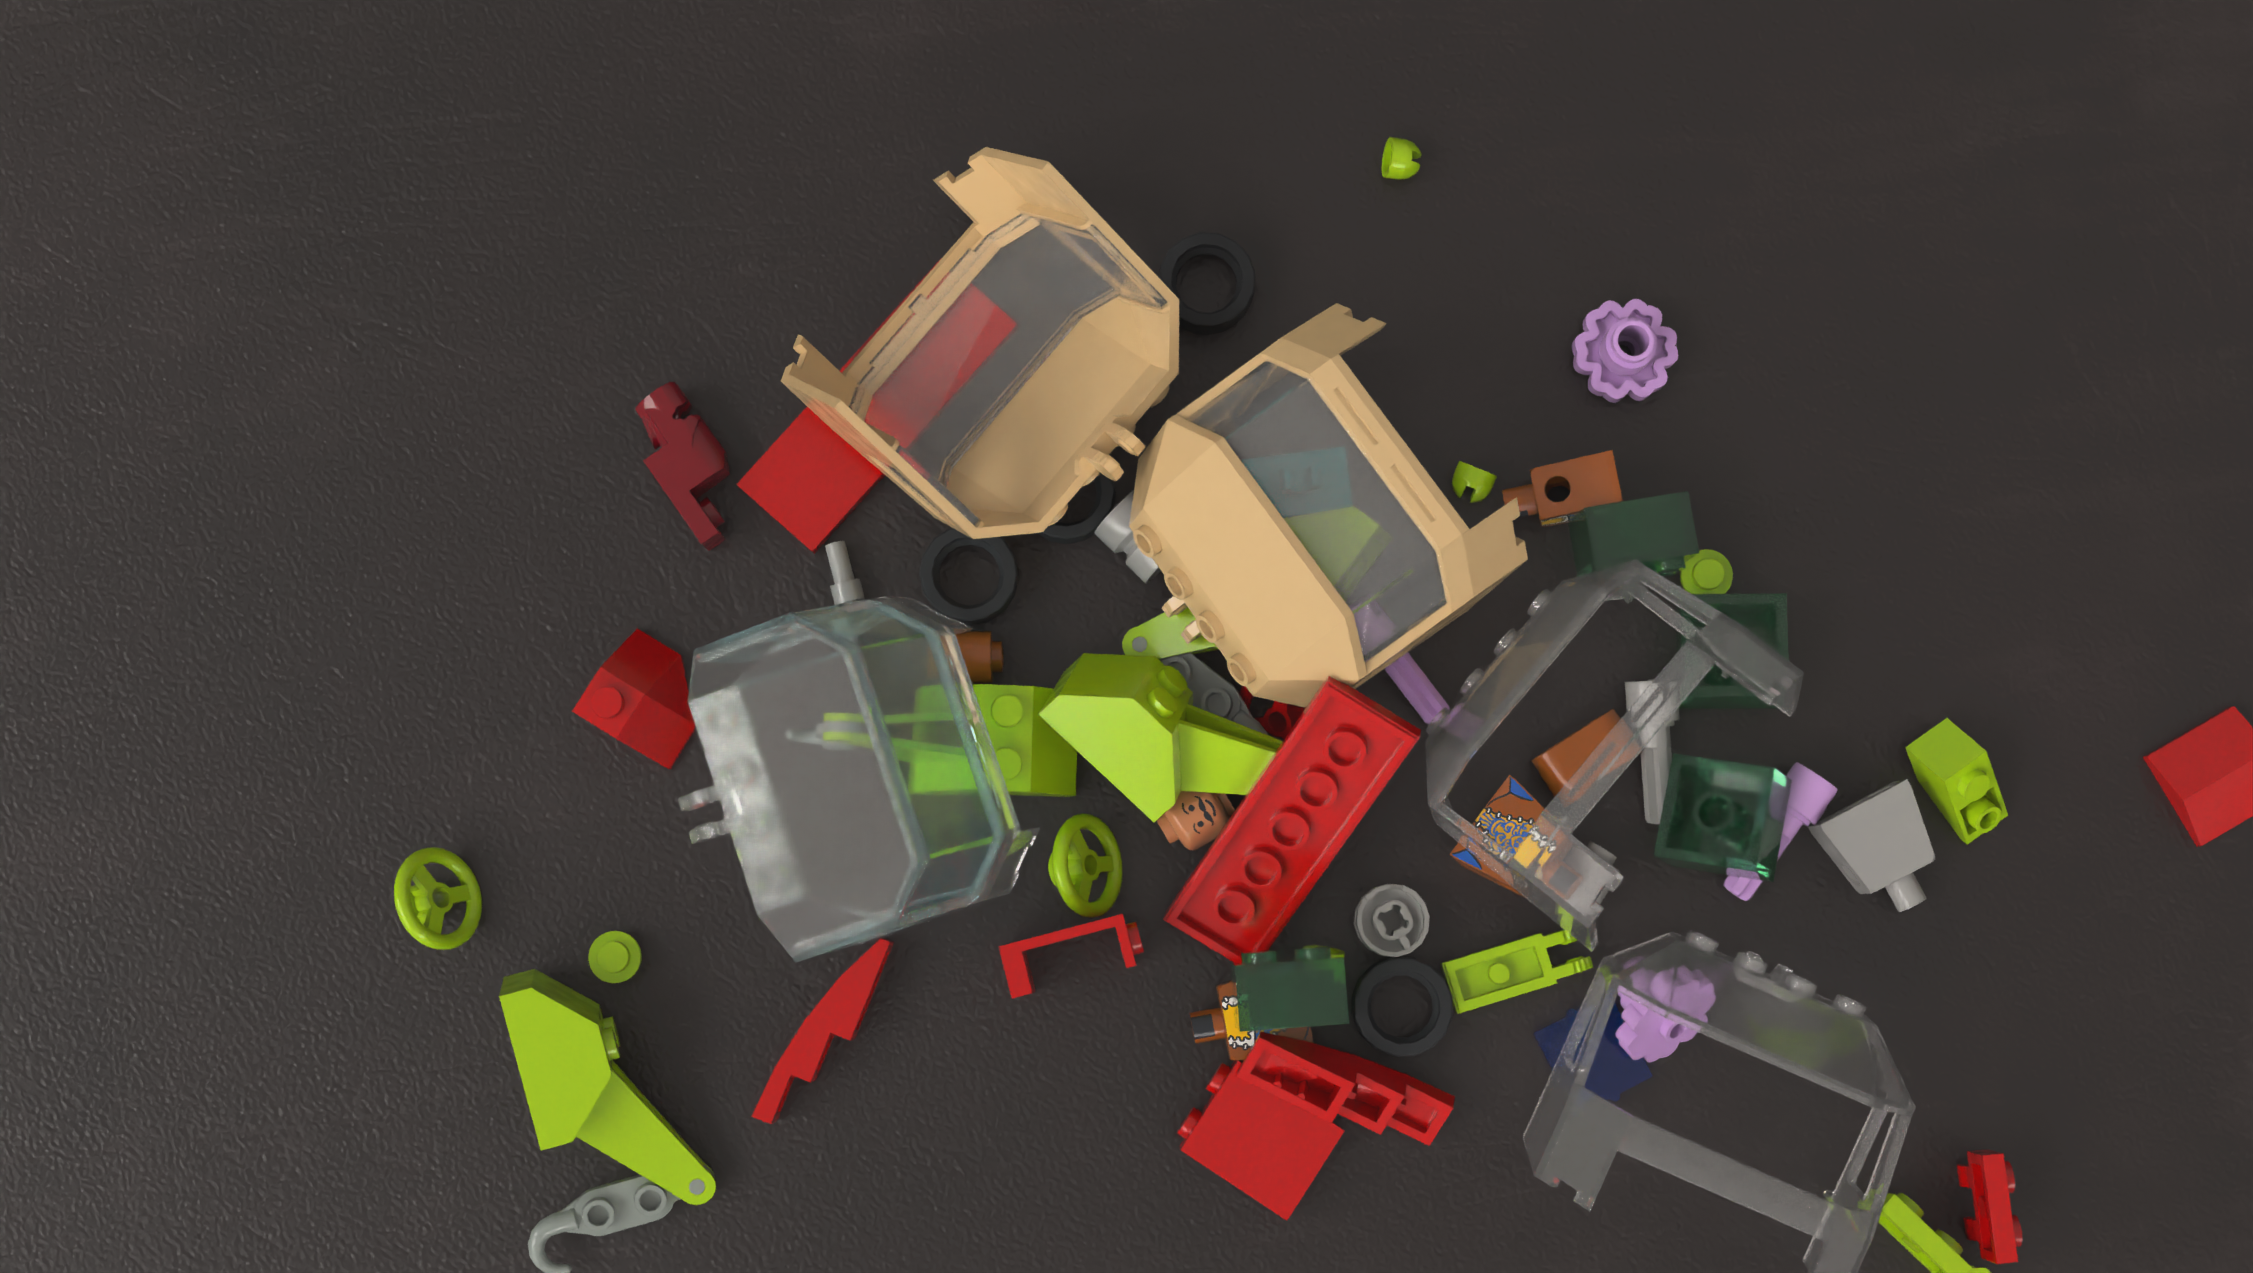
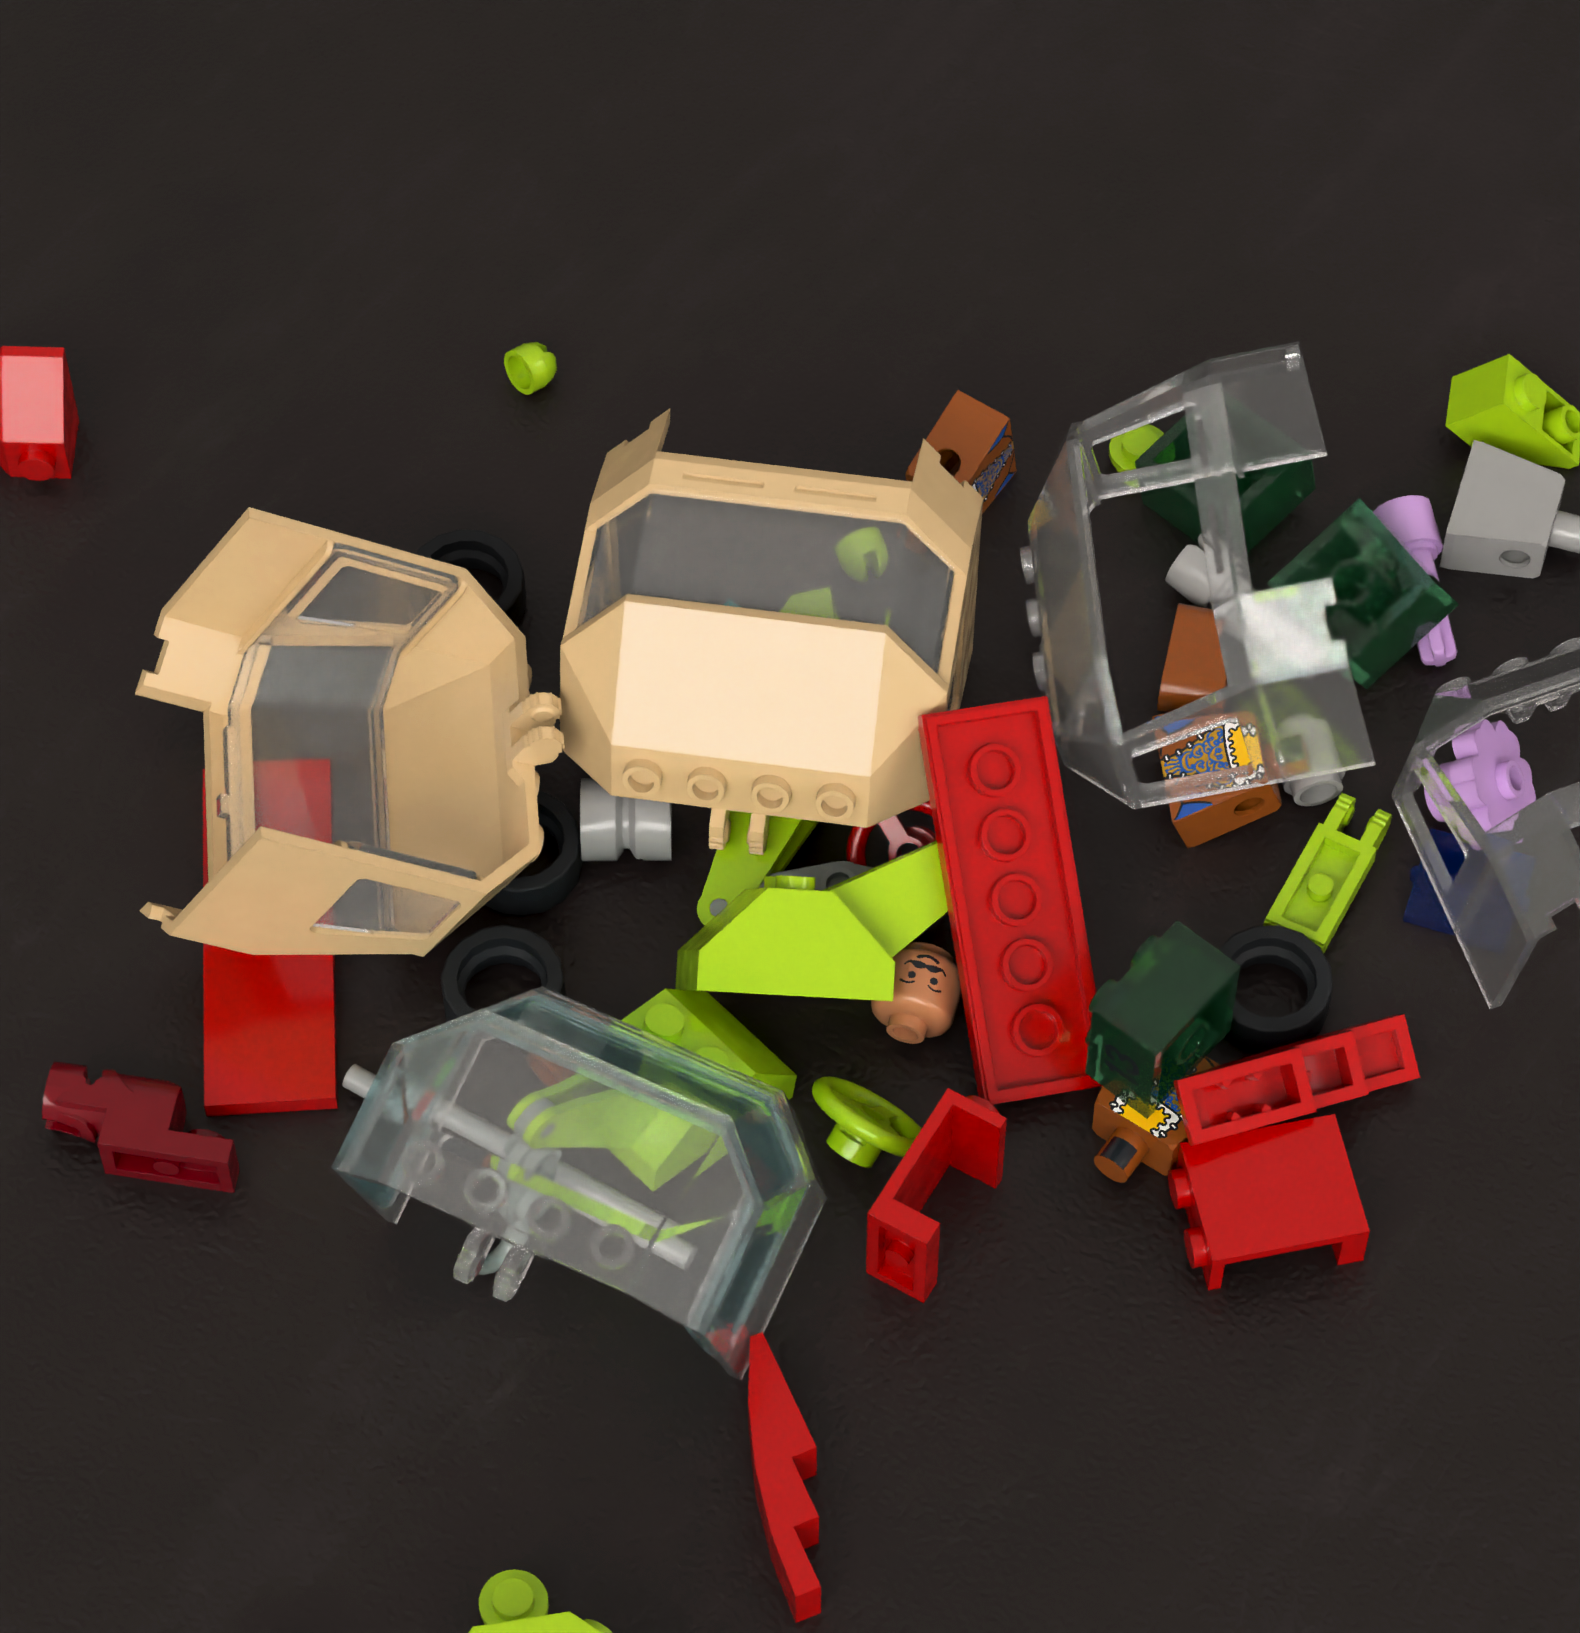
camera: 45 degrees left, 25 degrees down
(642, 699) = (308, 1365): red slope -> none
(1391, 920) = (1190, 904): light grey wheel -> none
(1612, 370) = (882, 346): lavender plant -> none
(1649, 529) = (1028, 443): clear green brick -> none

